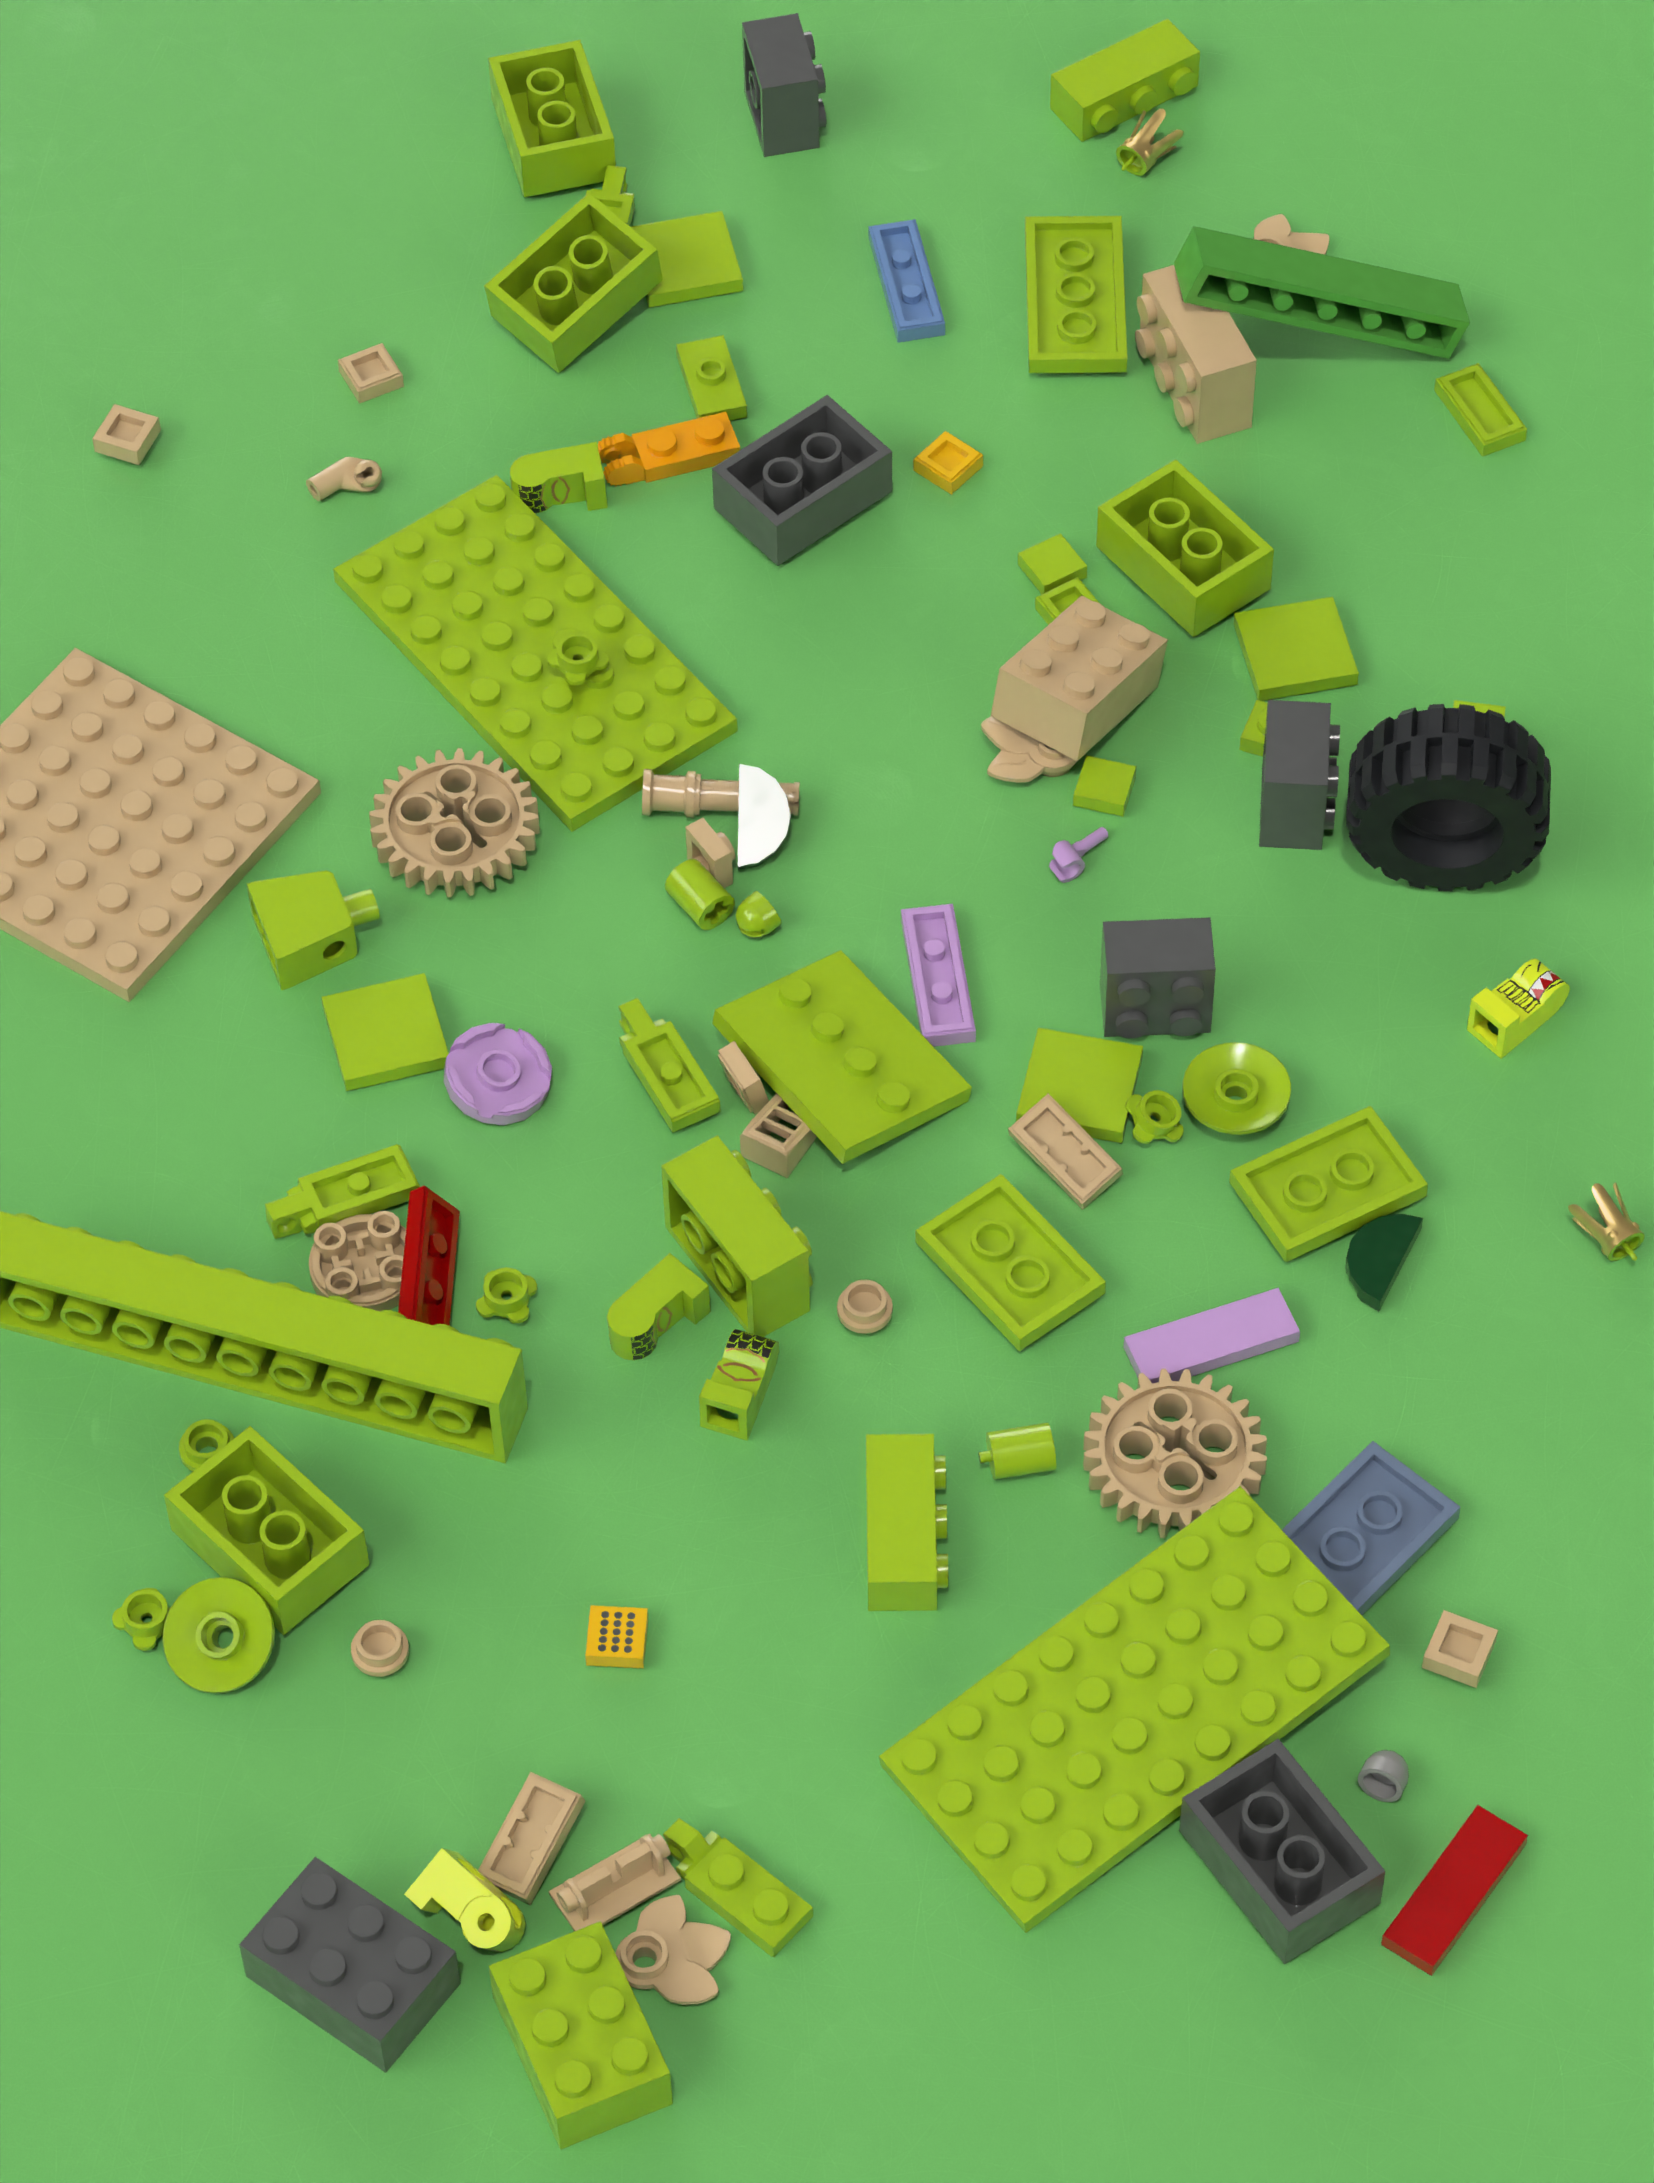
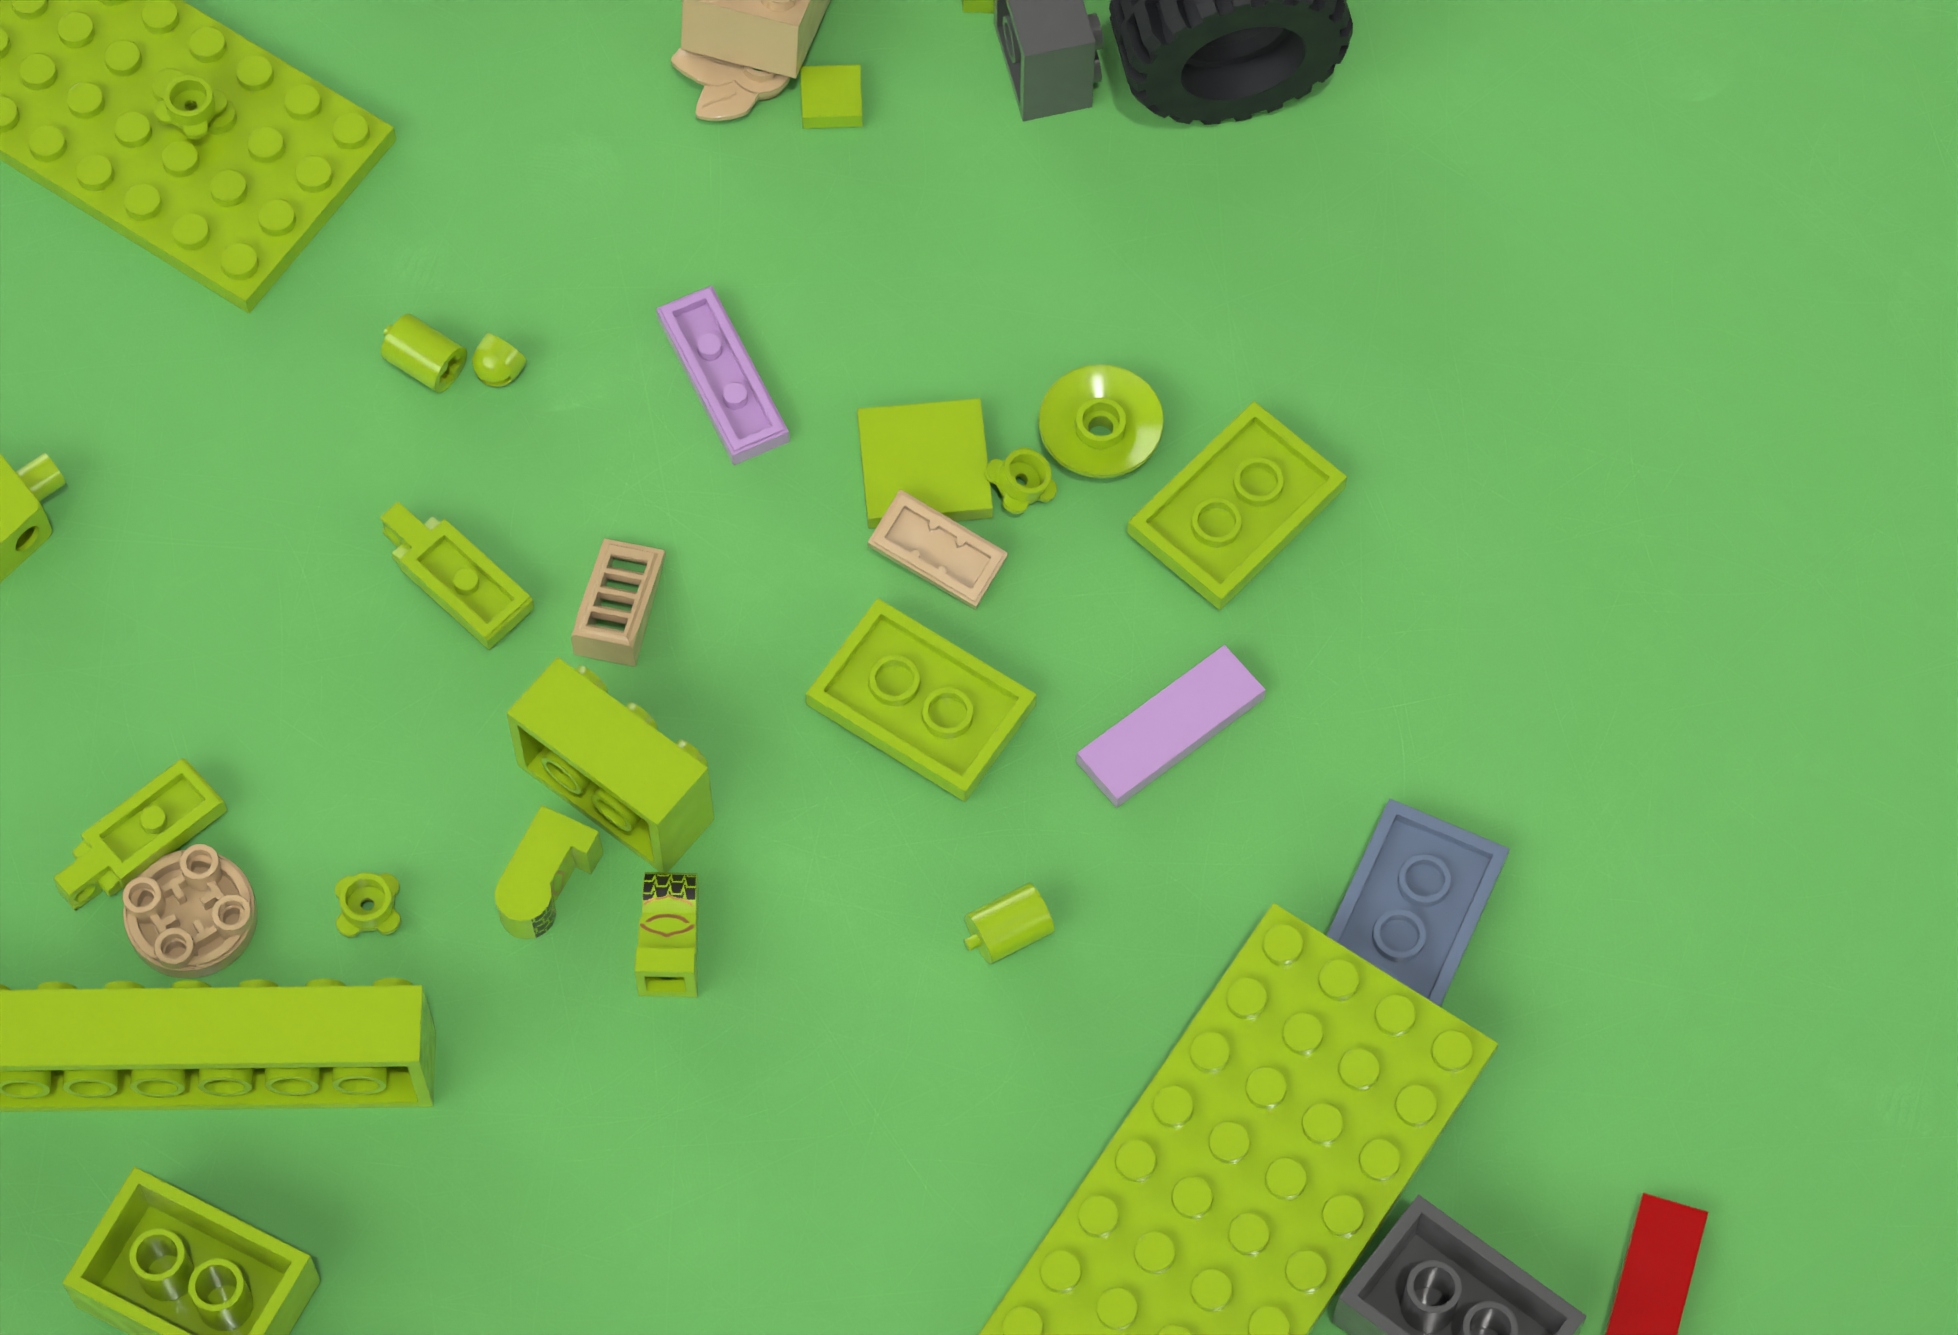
camera: 20 degrees left, 10 degrees up
(202, 1435) = (72, 1180): lime plate -> none
(385, 1031) = (118, 620): lime tile -> none
(428, 1258) = (267, 896): red tile -> none
(454, 822) = (82, 383): tan gear -> none
(497, 1074) = (266, 637): lavender tile -> none
(616, 1636) = (633, 1282): yellow tile -> none
(693, 794) = (377, 232): tan pin -> none
(711, 849) = (419, 296): tan plate -> none
(743, 1077) = (549, 564): tan tile -> none
(761, 816) = (463, 240): tile -> none
(842, 1056) = (650, 505): lime plate -> none
(864, 1307) = (777, 800): tan plate -> none
(904, 1522) = (910, 1049): lime brick -> none
(1068, 858) = (820, 198): lavender hand -> none
(1157, 977) = (975, 316): dark grey brick -> none
(1172, 1450) = (1200, 826): tan gear -> none
(1378, 1255) = (1317, 573): dark green tile -> none
(1384, 1776) = (1532, 1188): light grey hinge -> none
(1459, 1649) = (1563, 1014): tan plate -> none
(1516, 1007) = (1369, 237): neon yellow leg -> none
(1621, 1234) = (1570, 472): pearl gold piece -> none

